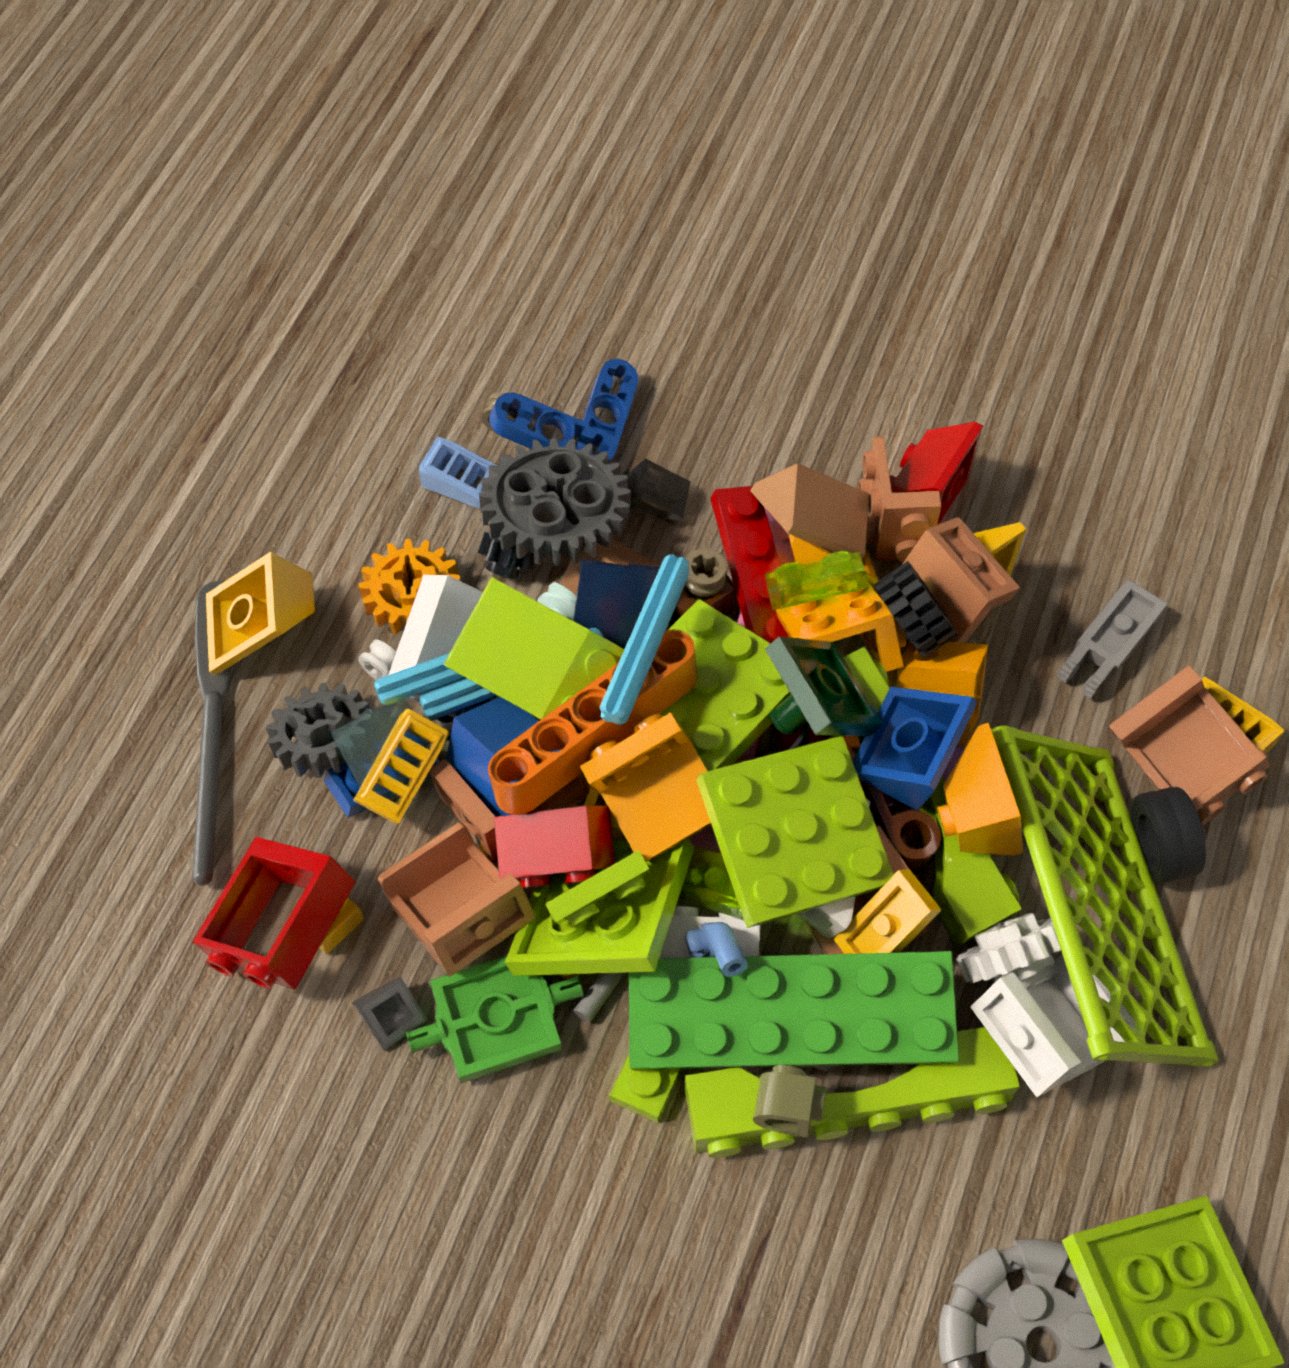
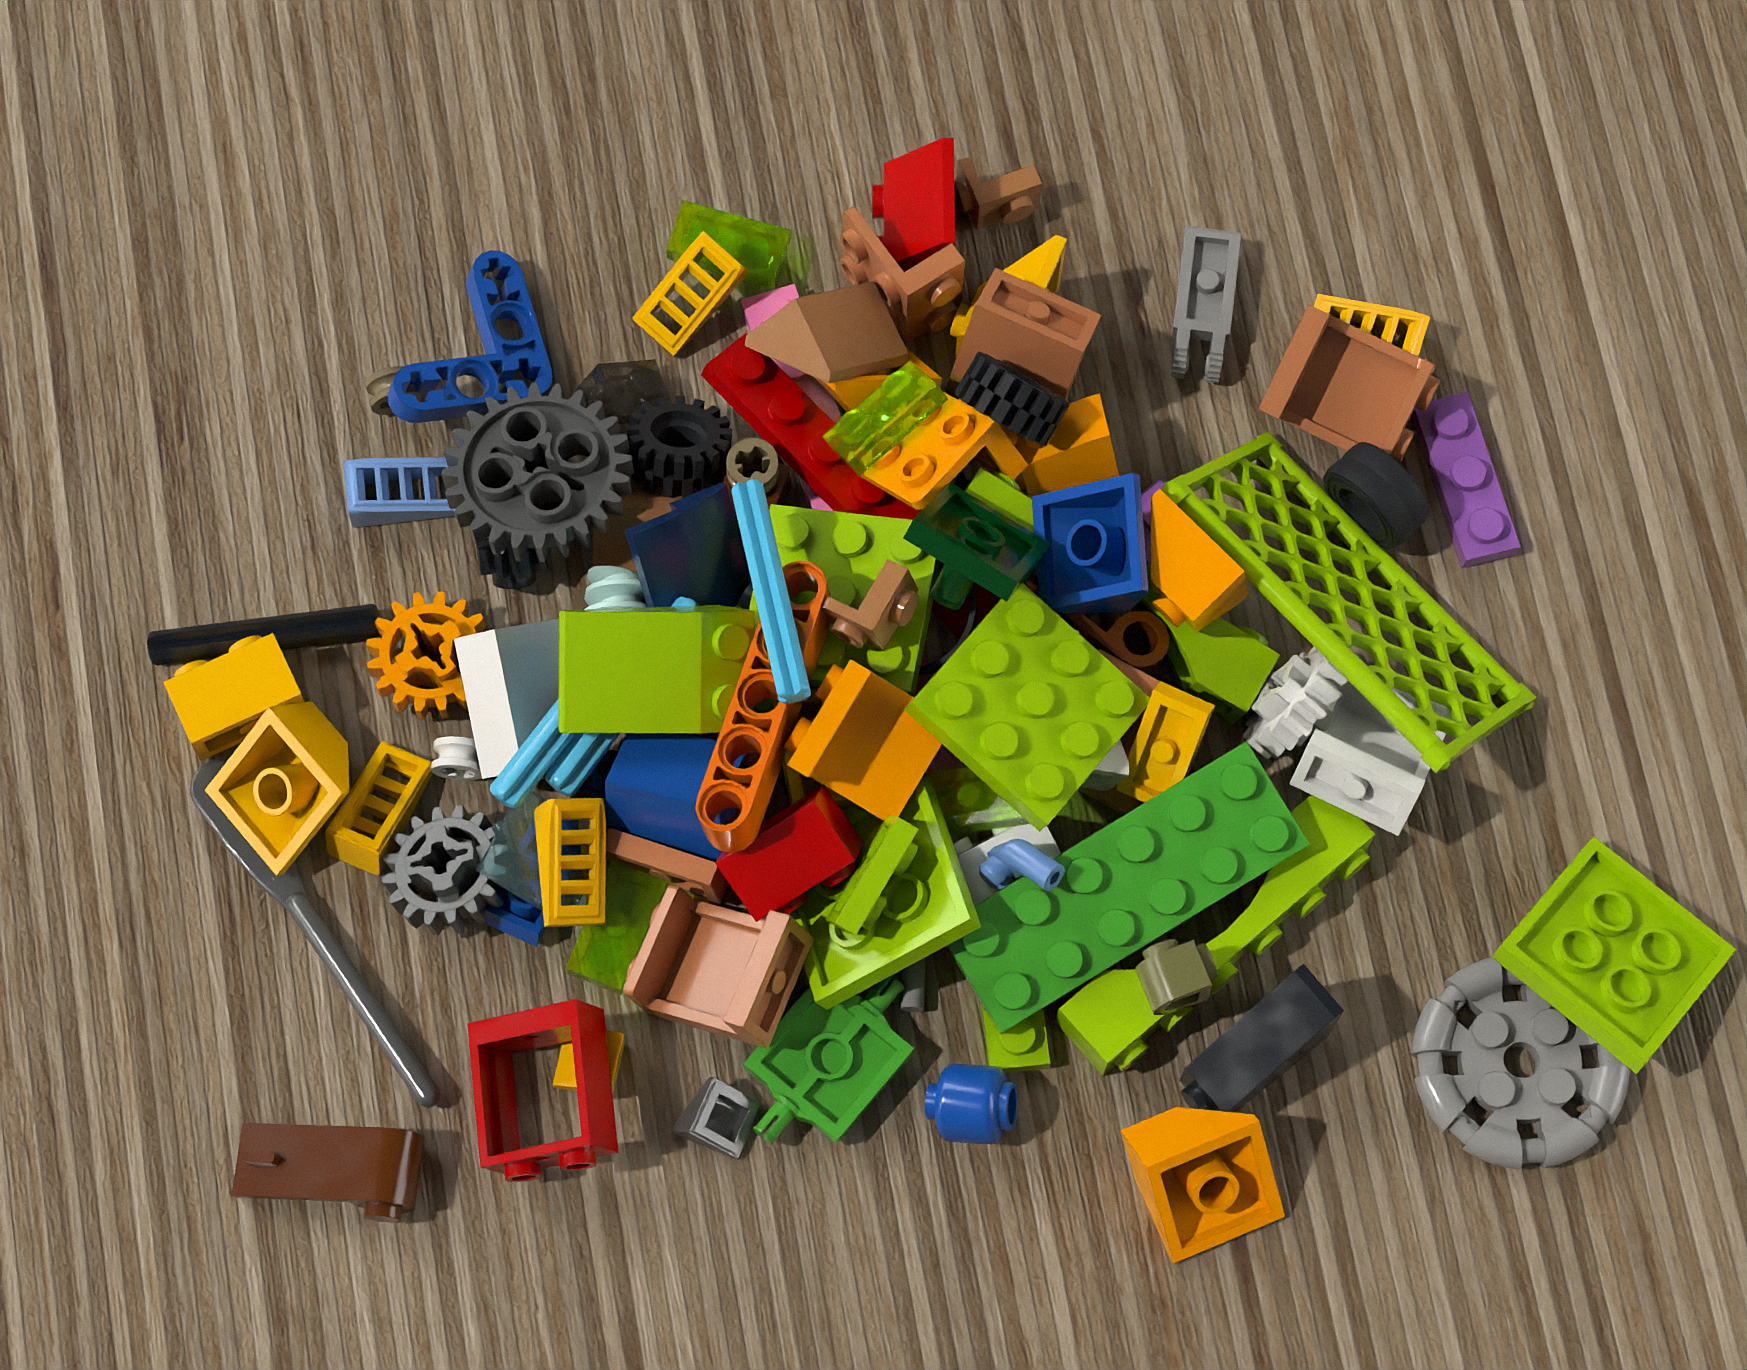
camera: 35 degrees left, 10 degrees up
(105, 885) = (331, 1163): none -> reddish brown door
(251, 532) = (230, 693): none -> yellow brick
(286, 661) = (364, 841): none -> yellow slope
(313, 519) = (290, 631): none -> black axle
(423, 821) = (608, 949): none -> clear neon green plate
(577, 1112) = (972, 1104): none -> blue head
(661, 531) = (700, 432): none -> black tyre
(721, 698) = (886, 606): none -> medium nougat bracket
(721, 1280) = (1202, 1177): none -> light orange slope
(745, 429) = (688, 263): none -> yellow slope
(788, 433) = (751, 242): none -> clear neon green plate
(828, 1201) = (1261, 1044): none -> black slope
(999, 495) = (999, 199): none -> medium nougat bracket
(1248, 867) = (1465, 481): none -> medium lavender plate

